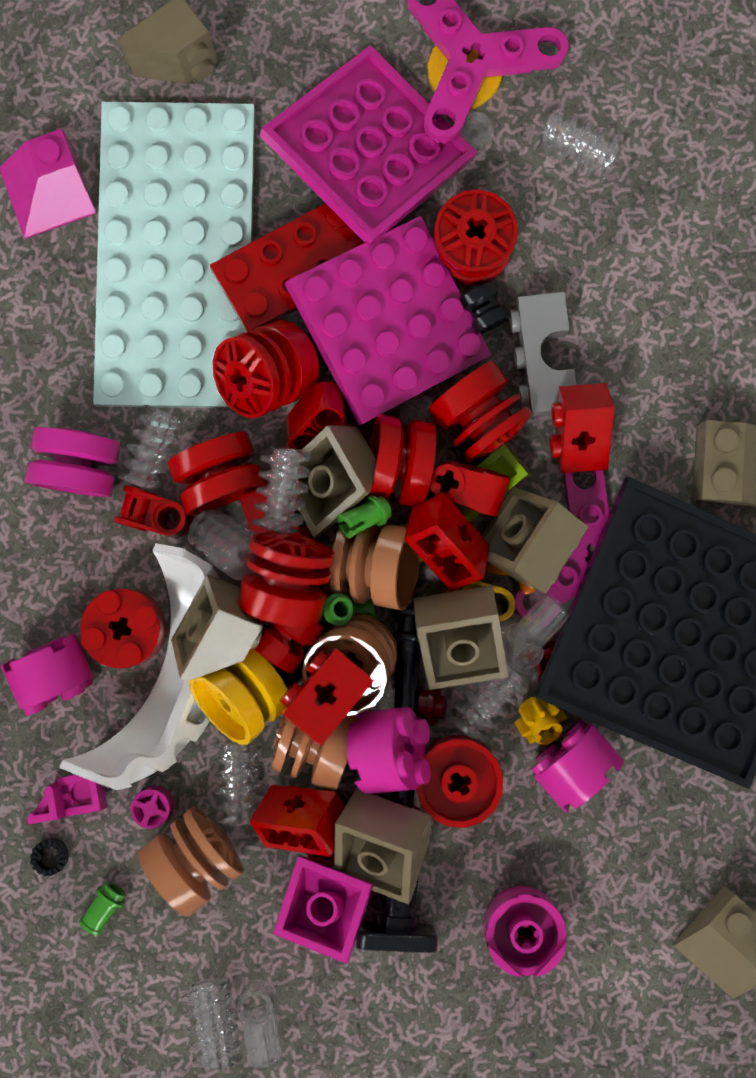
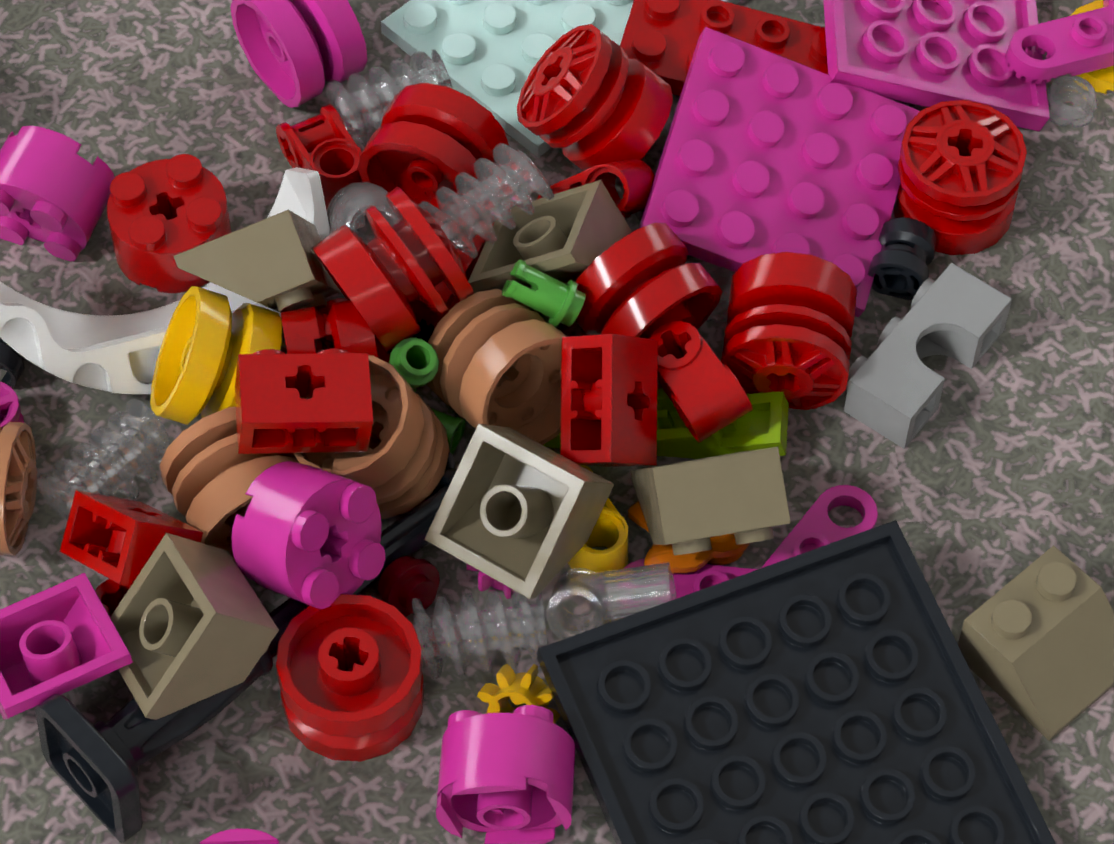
camera: 40 degrees right, 30 degrees down
(582, 427) = (919, 420): red brick -> none

